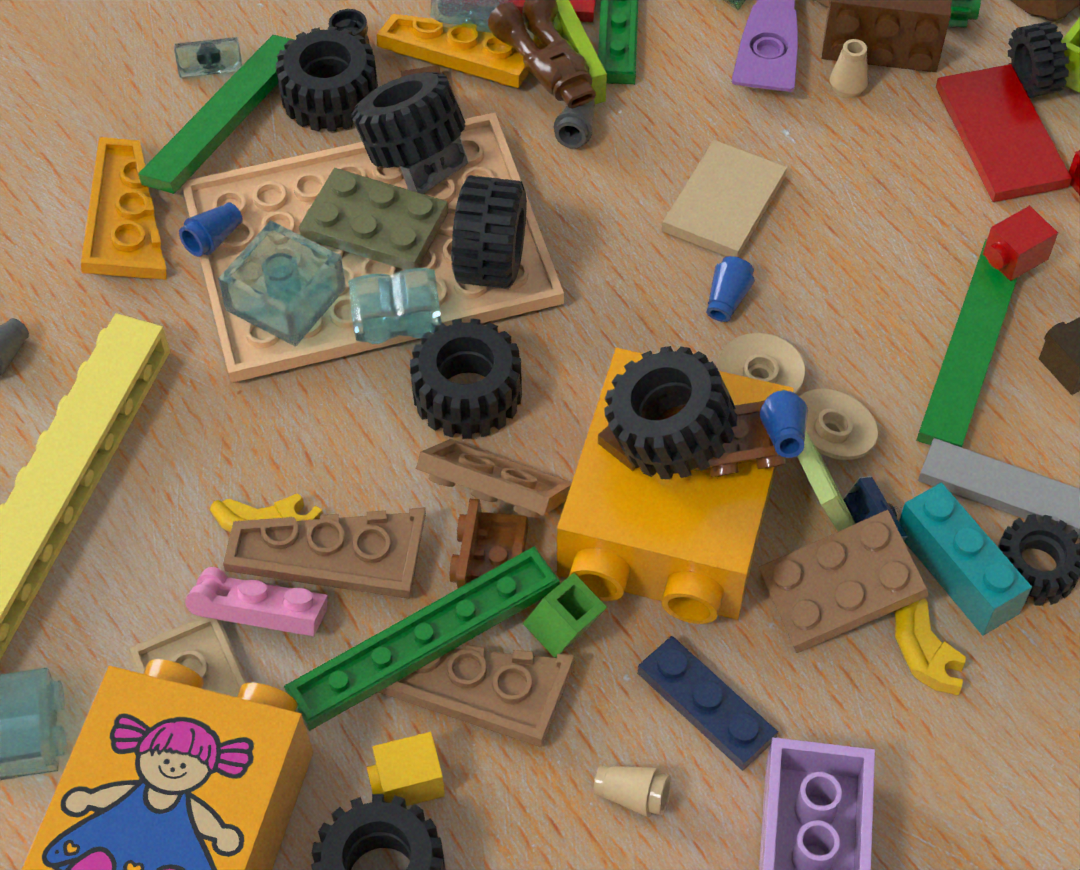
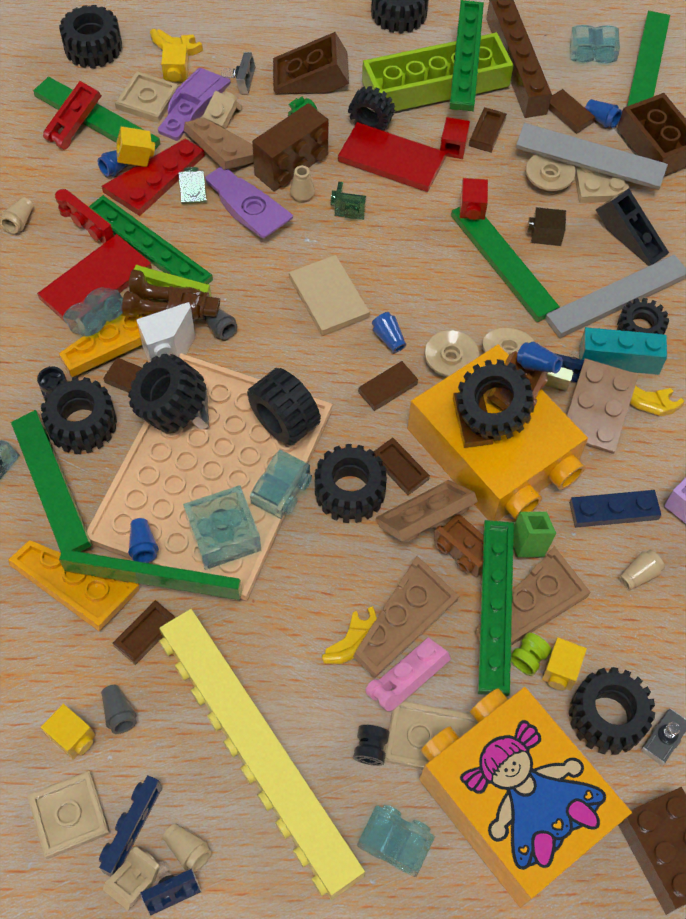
camera: 55 degrees left, 5 degrees up
(95, 311) = (143, 633): none -> reddish brown tile
(128, 621) = (371, 745): none -> black wheel
(176, 266) = (151, 574): none -> green tile
(374, 219) = (206, 457): olive plate -> none
(403, 721) = (530, 654): none -> lime wheel
(498, 79) = (167, 331): none -> white slope
(548, 422) = (401, 466): none -> reddish brown tile
(647, 332) = (388, 385): none -> reddish brown tile
(873, 131) = (348, 205): none -> clear green bracket

